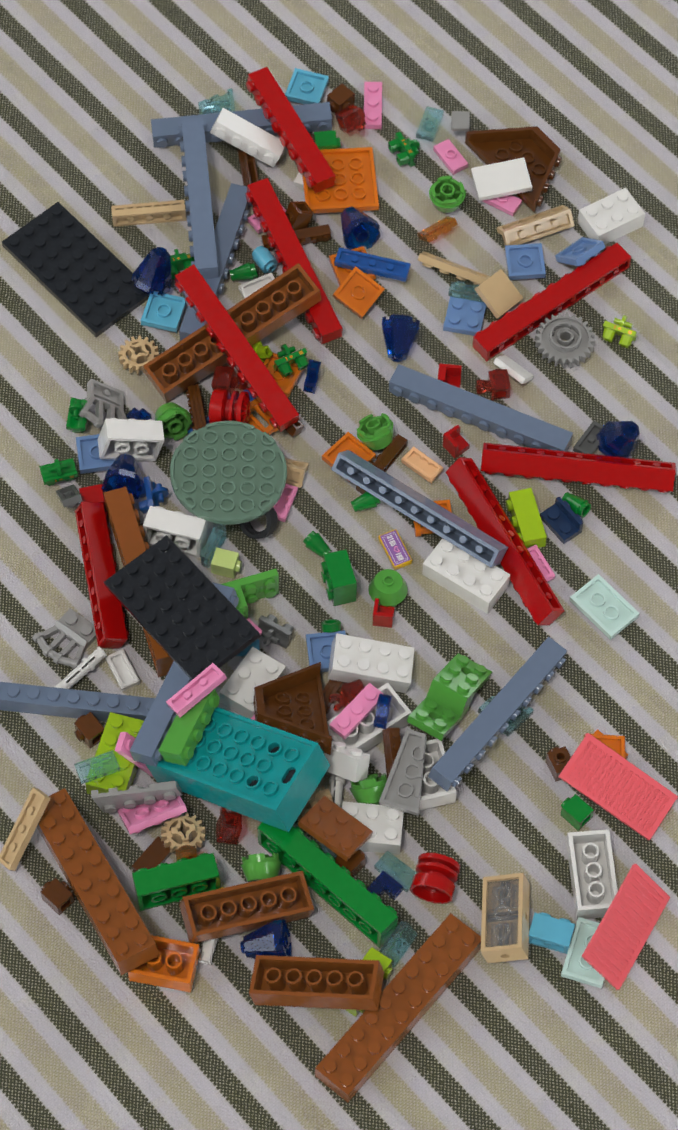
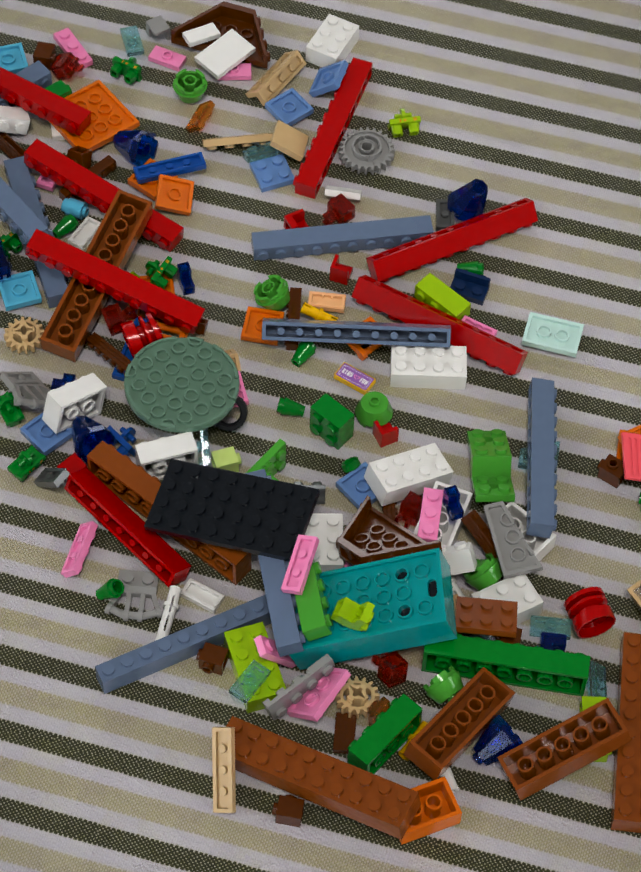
camera: 35 degrees left, 5 degrees down
(47, 621) = (111, 589): none -> green cone
(49, 572) = (79, 549): none -> bright pink plate
(174, 420) = (96, 364): bright green cone -> none
(208, 759) = (352, 614): none -> lime brick
(399, 336) = (234, 211): clear blue cone -> none
(404, 473) = (317, 314): none -> yellow pin
(493, 149) = (201, 34): none -> white tile

